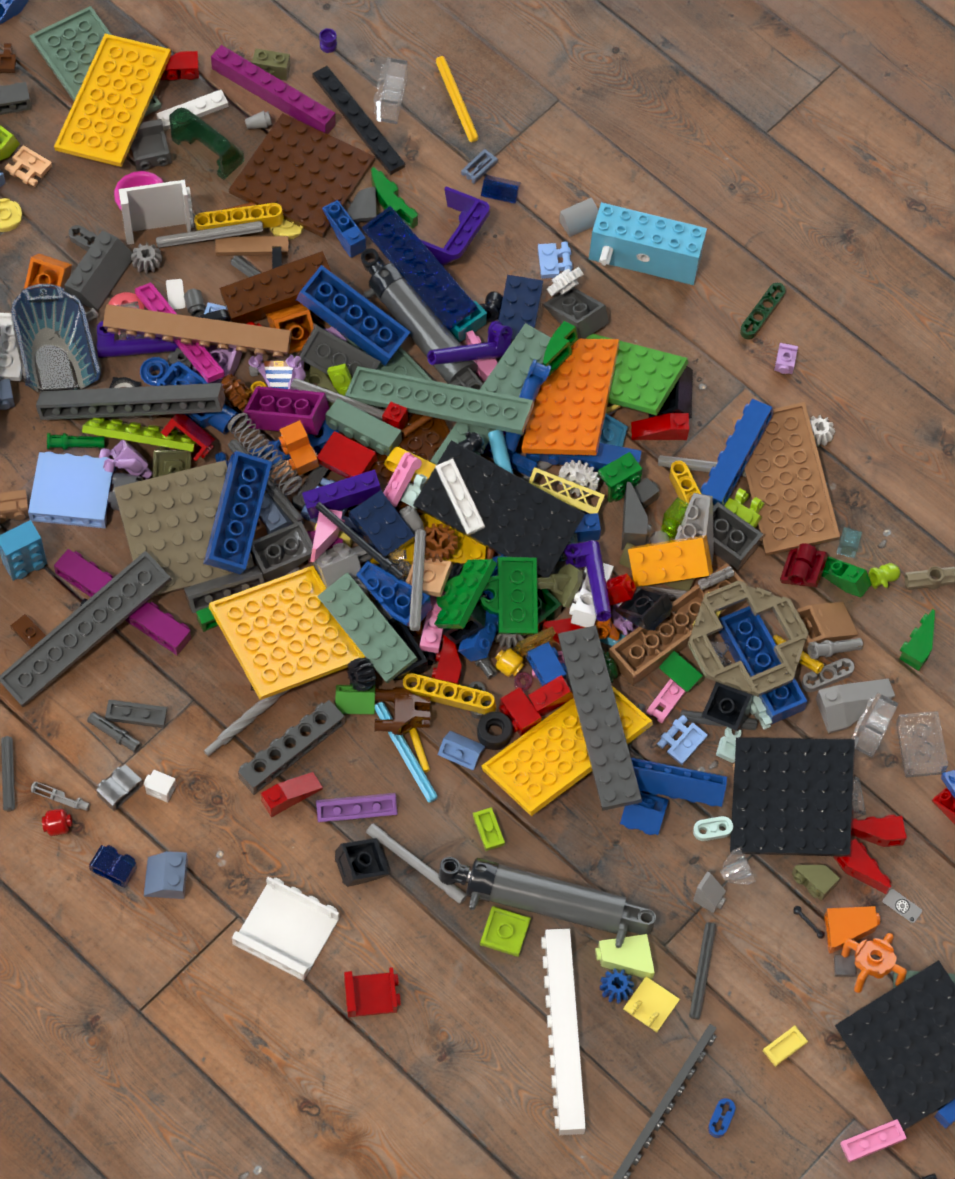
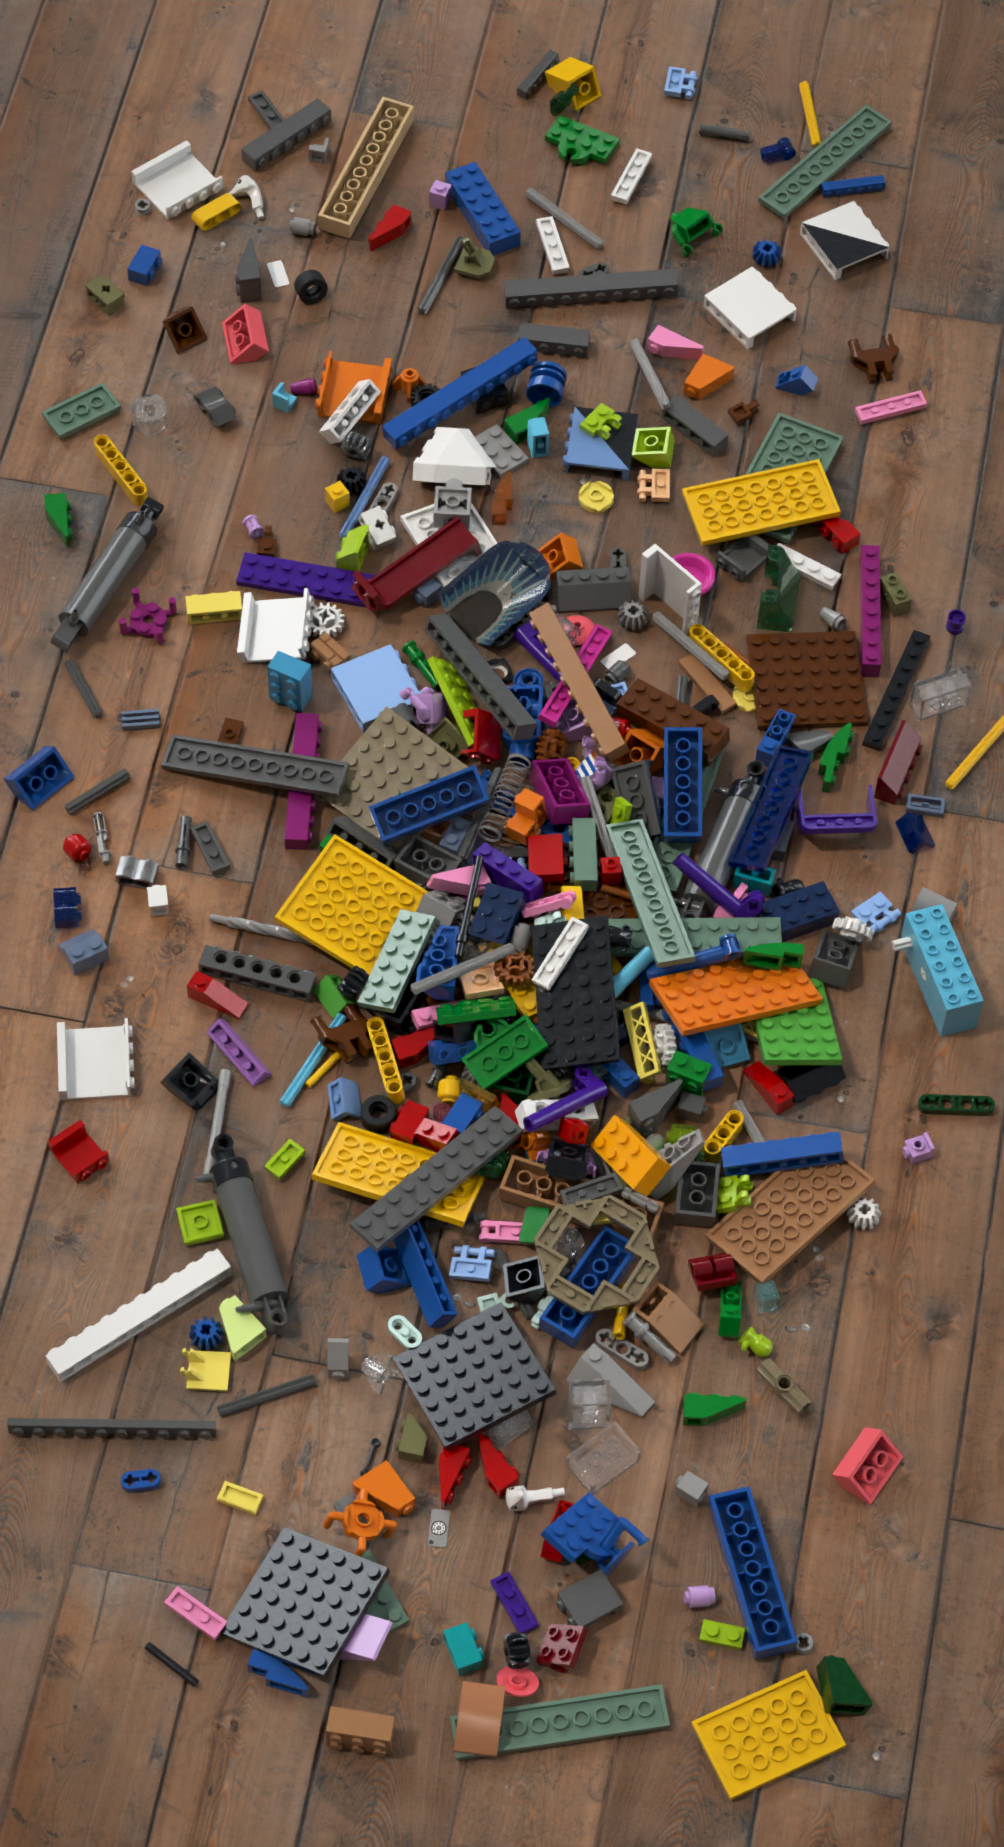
camera: 60 degrees right, 5 degrees down
(432, 159) = (898, 764): none -> slope
(686, 608) = (592, 1189): none -> dark grey plate
(918, 826) = (519, 1498): none -> white animal

